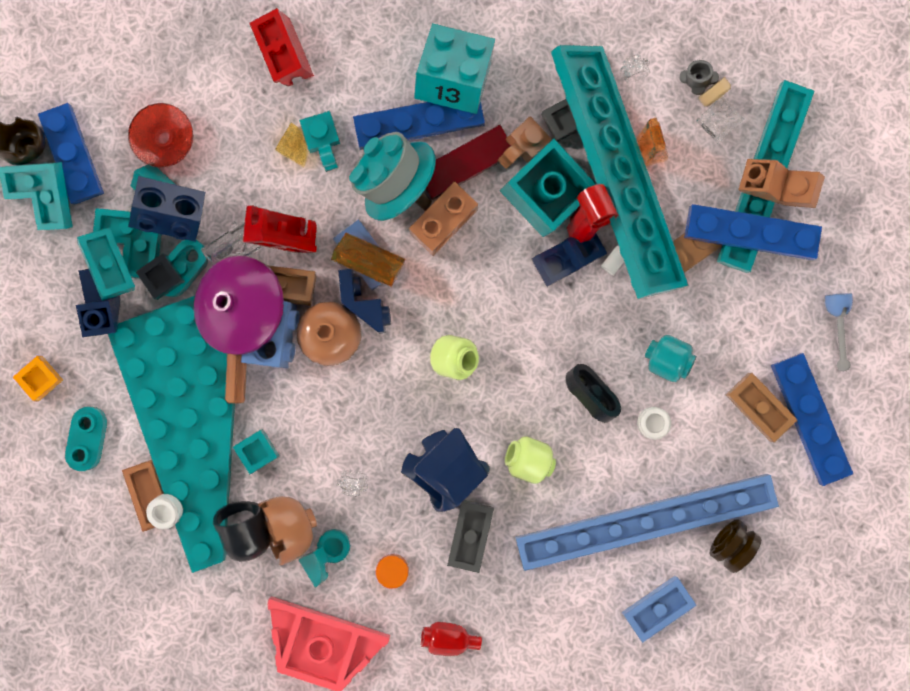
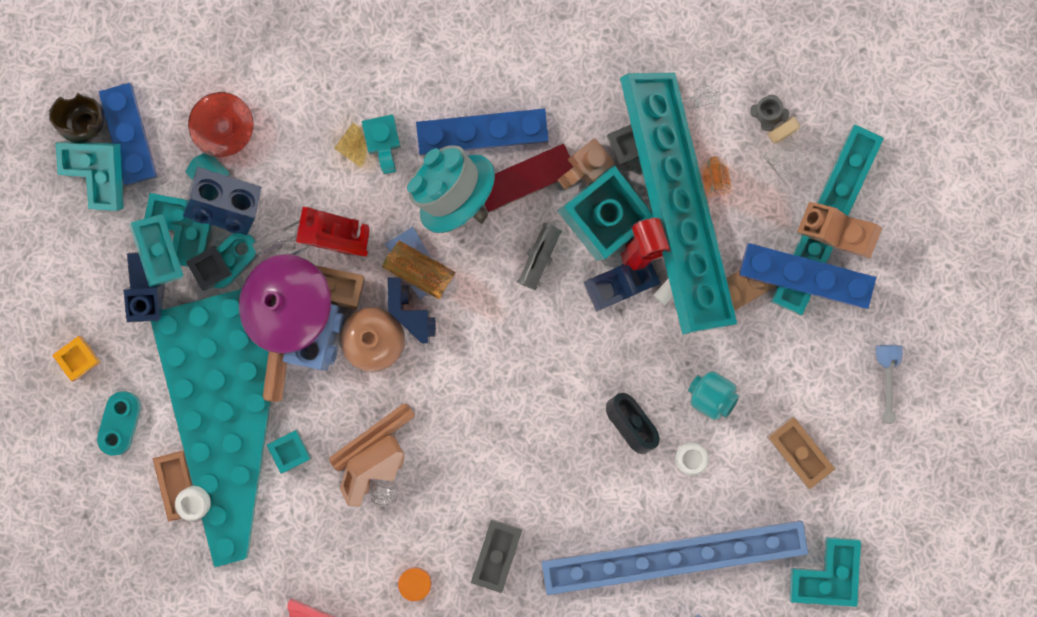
camera: 10 degrees right, 0 degrees up
(246, 539) = (270, 538): black helmet -> none
(281, 47) = (349, 47): red hinge -> none
(288, 527) = (314, 530): nougat cylinder -> none
(315, 566) = (337, 571): teal tile -> none
(335, 544) = (358, 553): teal tile -> none
(337, 430) = (377, 432): none -> nougat axle
(343, 454) = (376, 462): none -> nougat slope
(443, 218) = (498, 234): nougat brick -> none
(446, 469) = (478, 486): dark blue piece -> none
(454, 68) = (522, 84): teal brick -> none
(454, 357) = (496, 375): yellowish green head -> none
(486, 237) = (539, 256): none -> dark grey pin
(530, 460) = (563, 484): yellowish green head -> none
(735, 546) = (760, 589): dark brown wheel -> none
(809, 531) = (836, 583): none -> teal plate
(812, 419) = (851, 469): blue plate -> none

